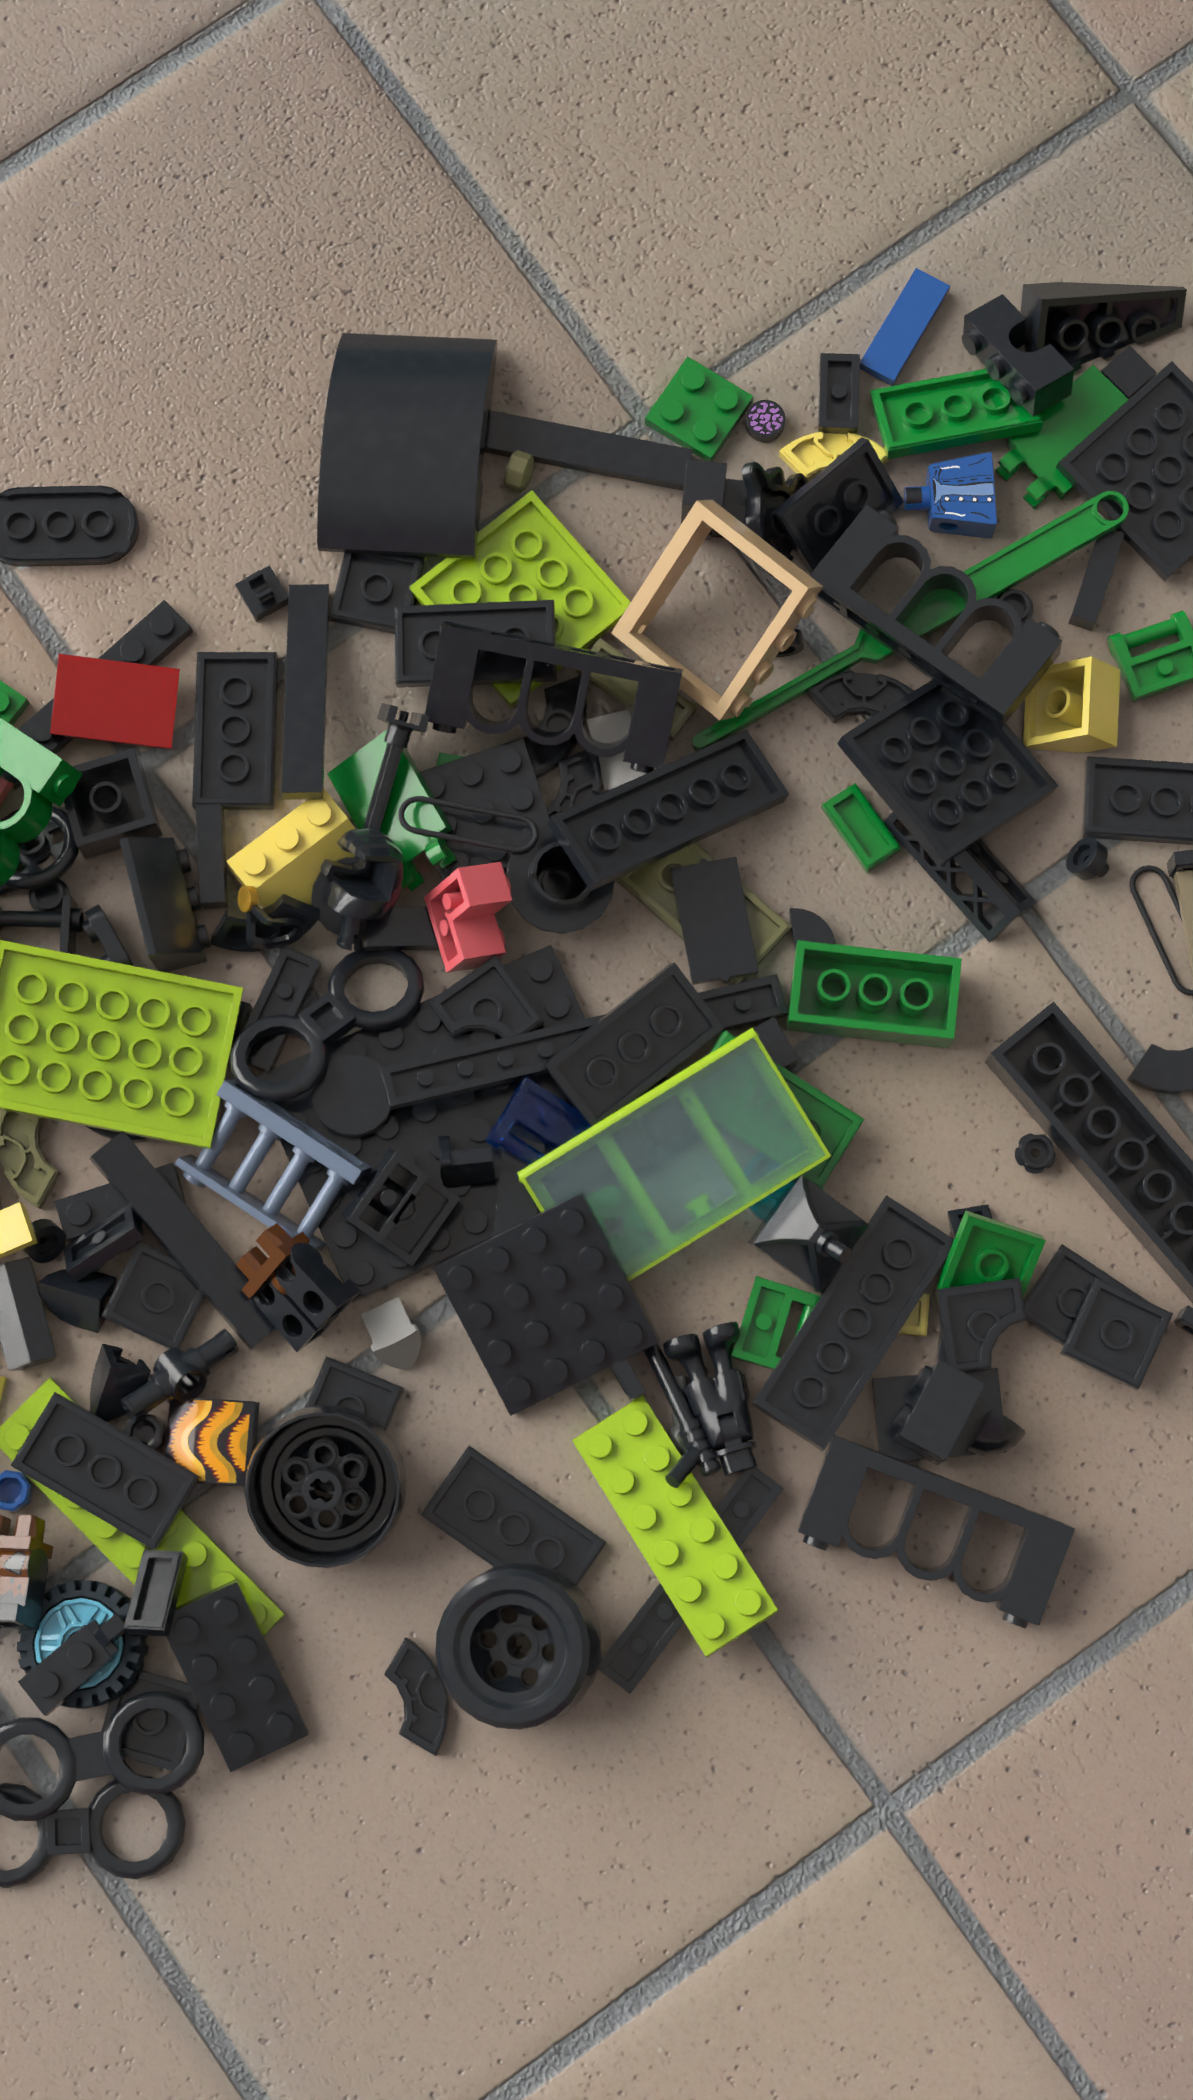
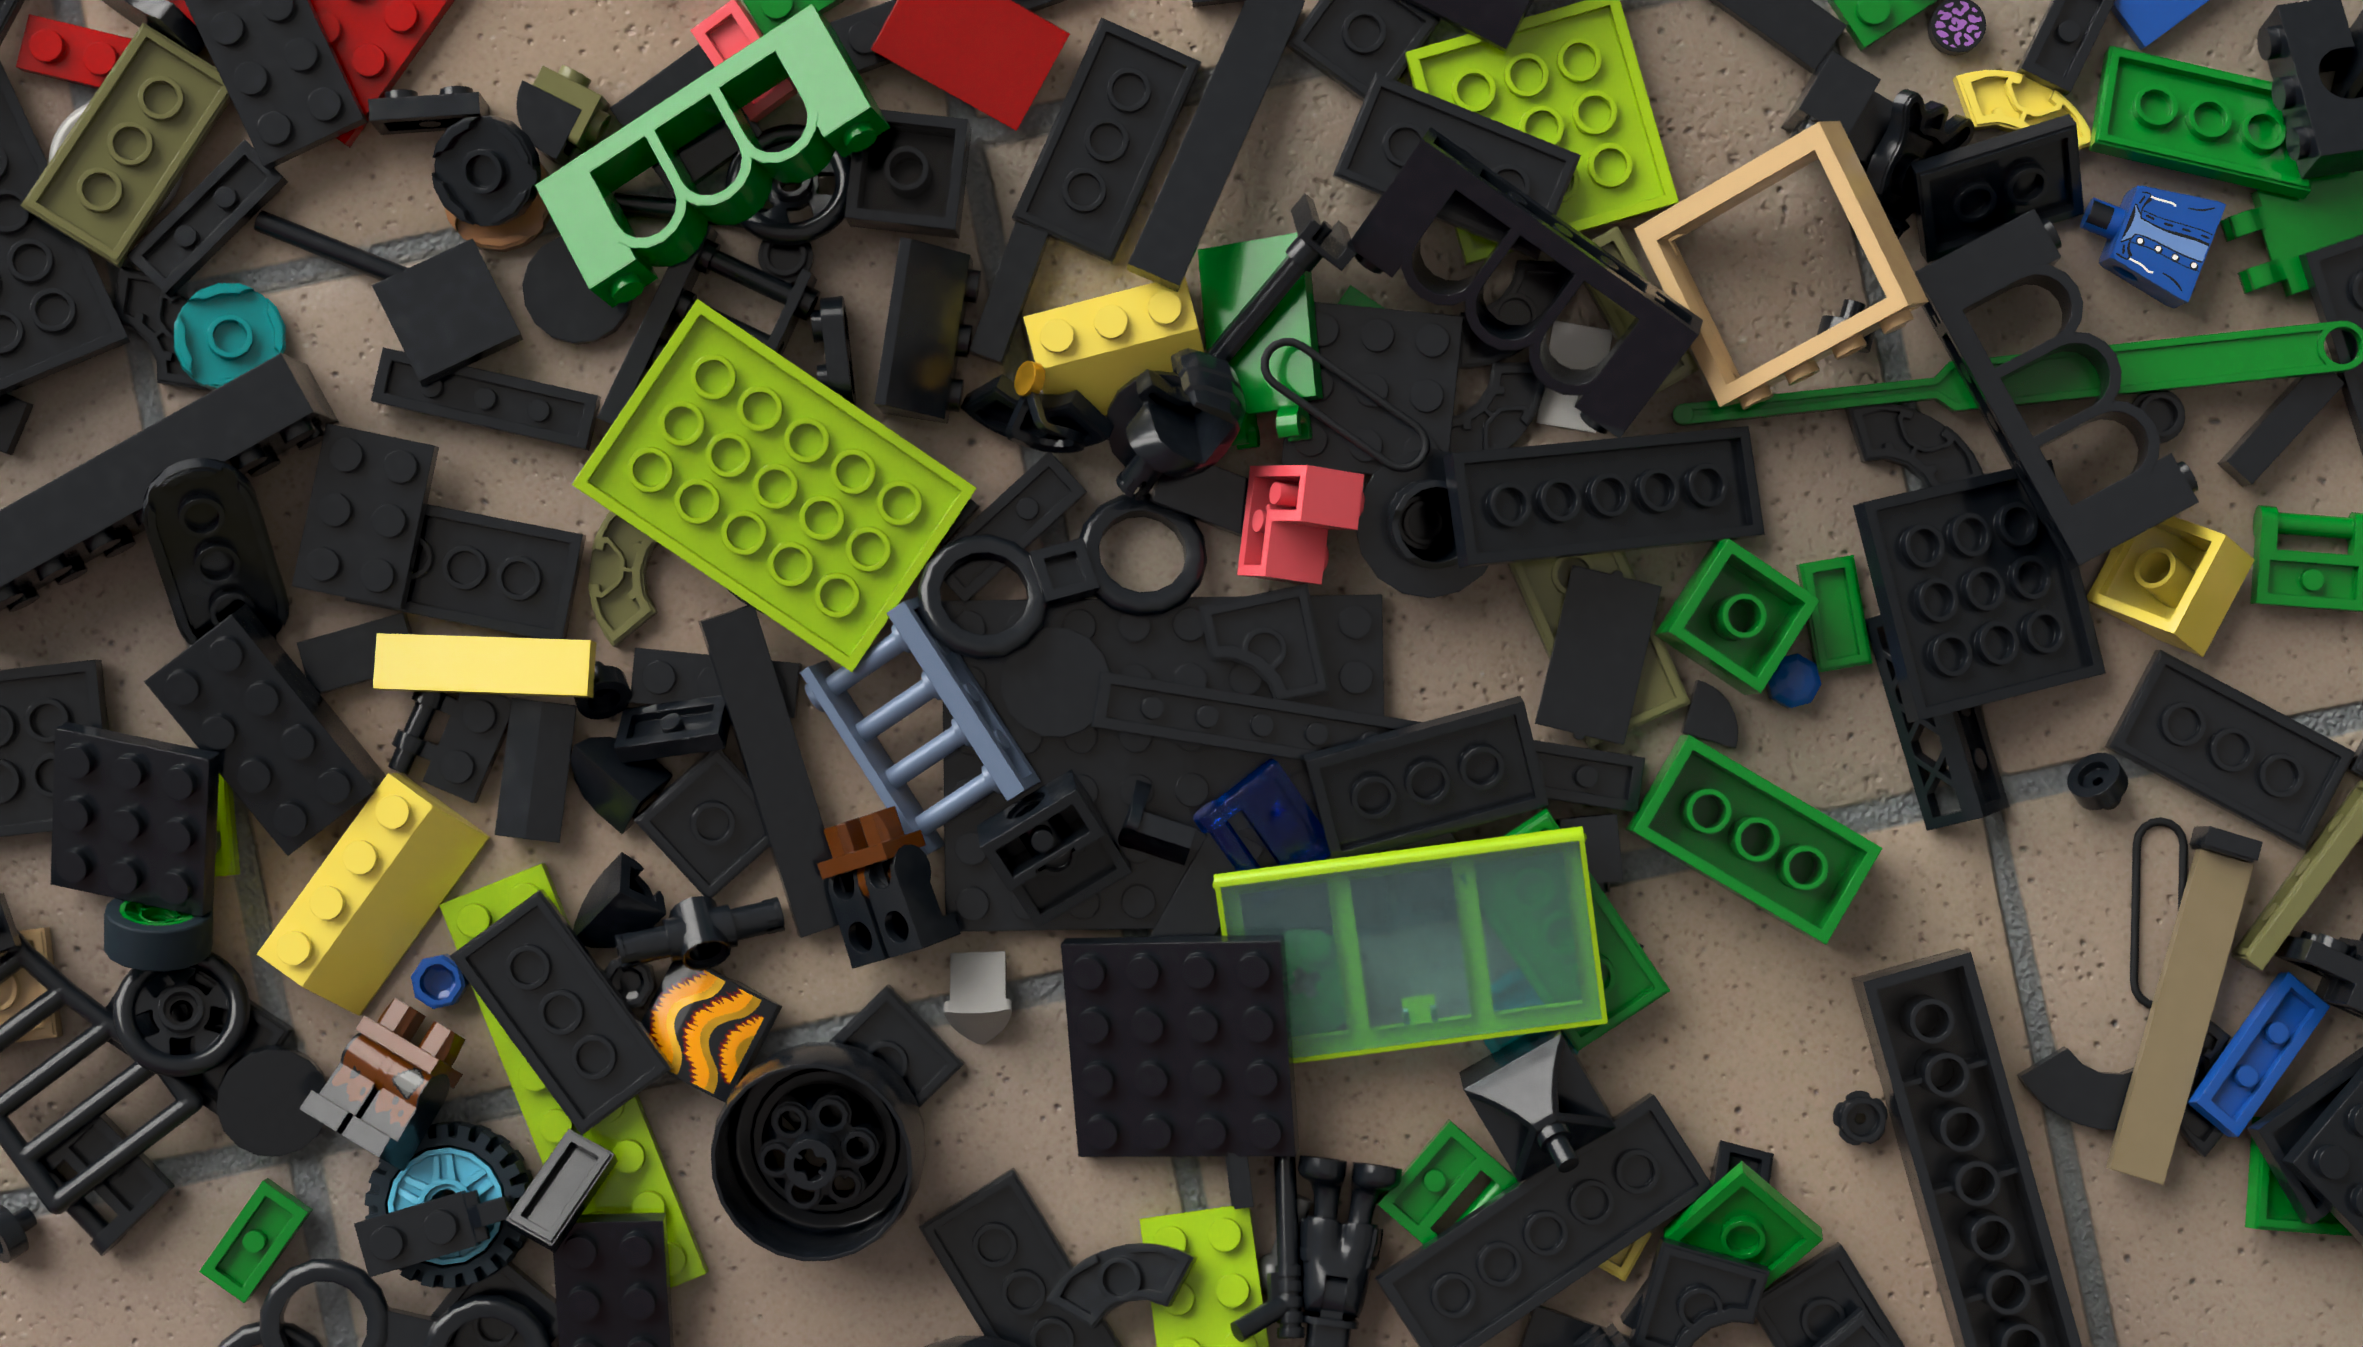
camera: 25 degrees right, 10 degrees up
(575, 1483) = (1121, 1276): none -> black tile
(795, 853) = (1737, 617): none -> green brick
(853, 882) = (1794, 681): none -> blue tile

